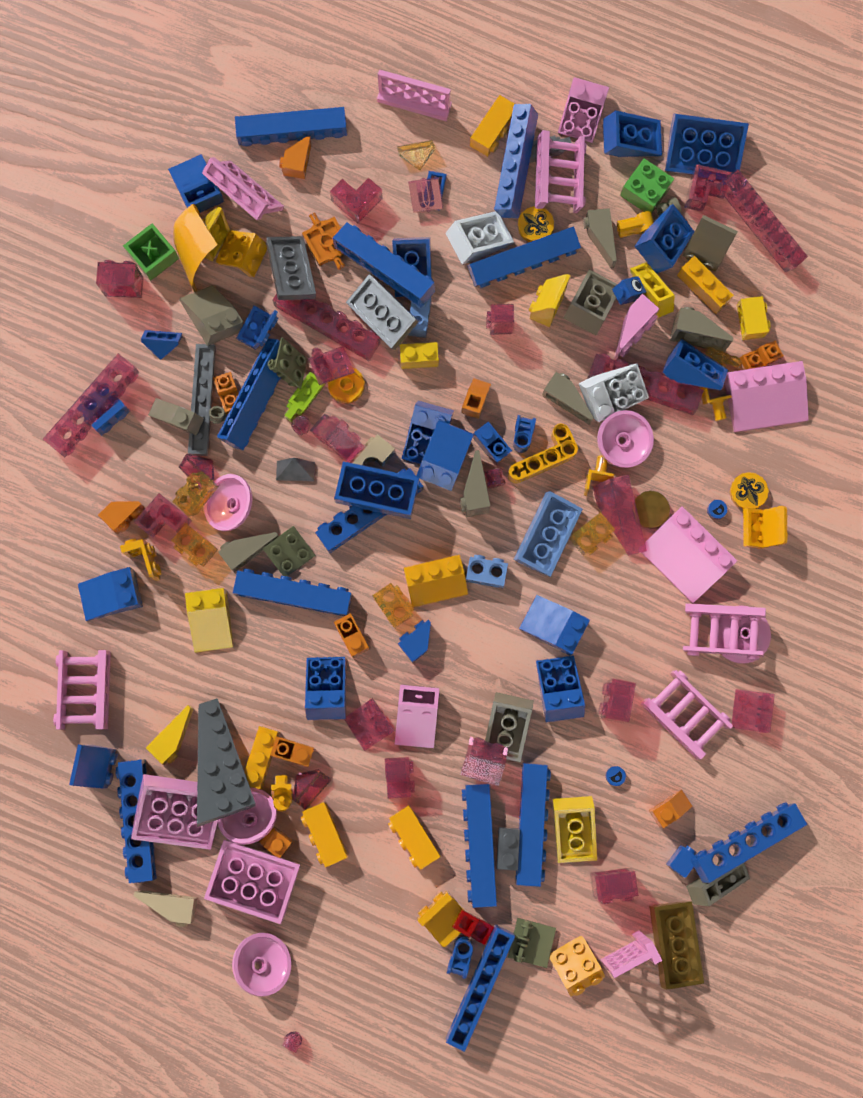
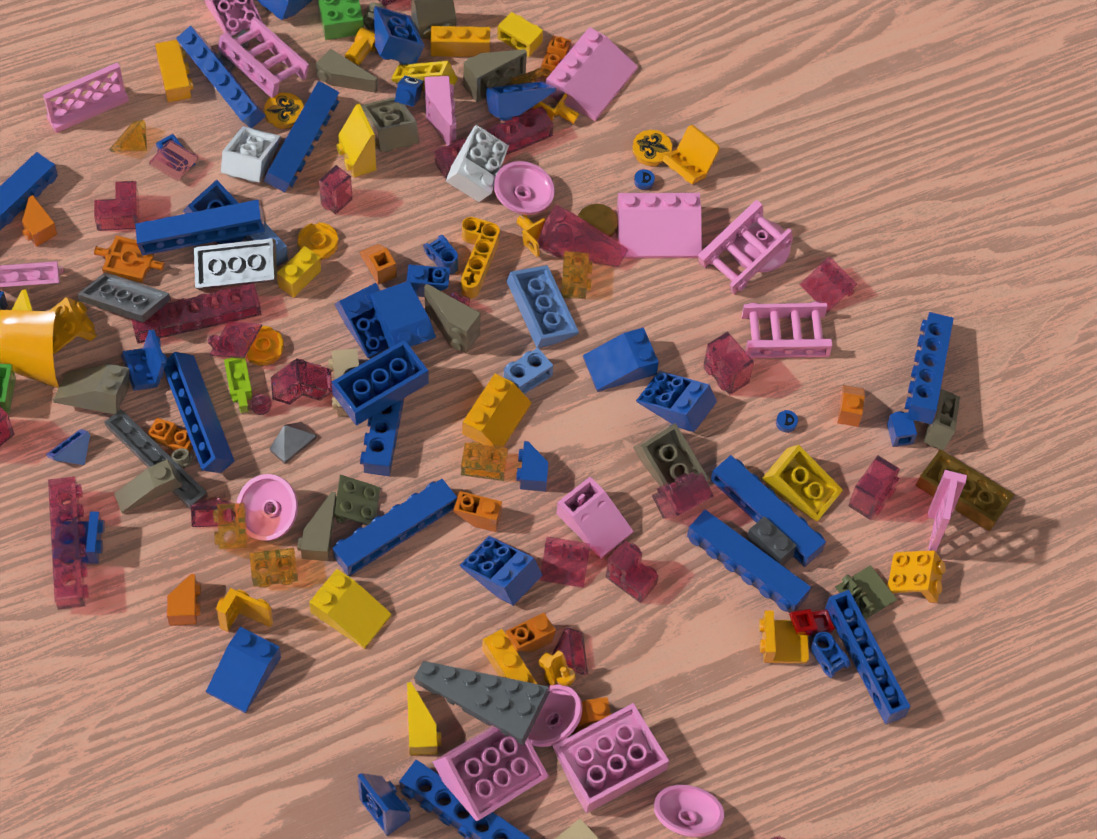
camera: 50 degrees left, 20 degrees down
(100, 700) = (311, 739): bright pink fence -> none
(158, 514) = (223, 563): clear pink brick -> none
(289, 364) = (203, 367): olive hinge -> none
(324, 834) = (624, 672): light orange brick -> none
(413, 838) = (694, 606): light orange brick -> none
(457, 343) = (319, 238): none -> light orange tile
(564, 393) = (444, 201): dark tan slope -> none

